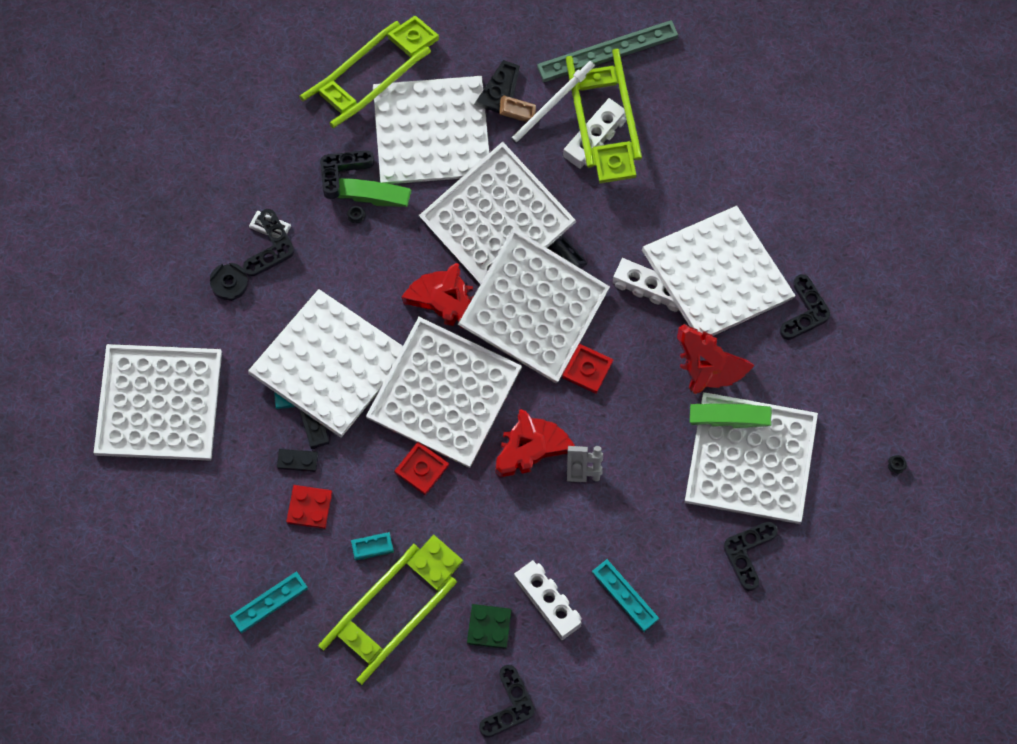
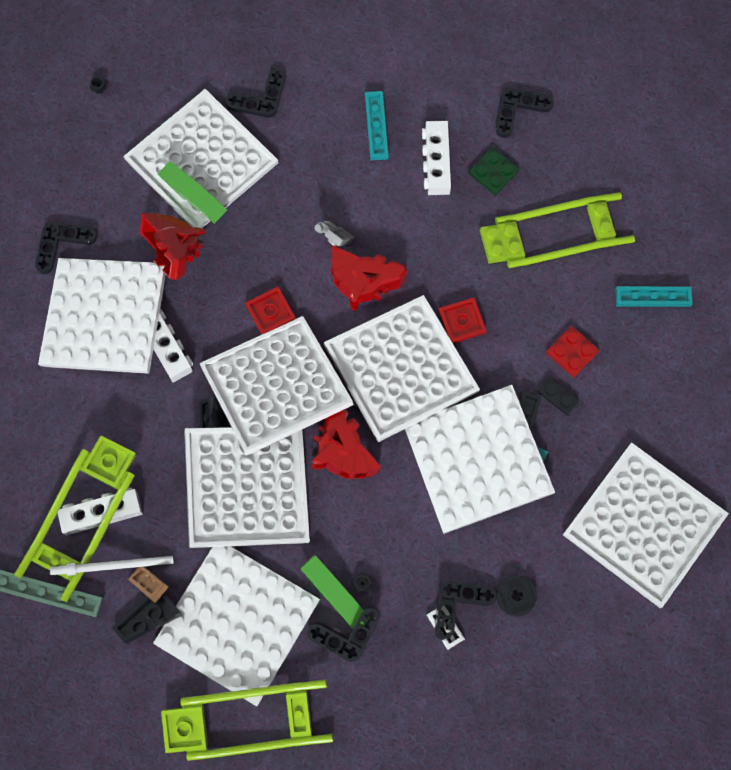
camera: 145 degrees left, 5 degrees up
(372, 546) = (543, 286): teal plate -> none

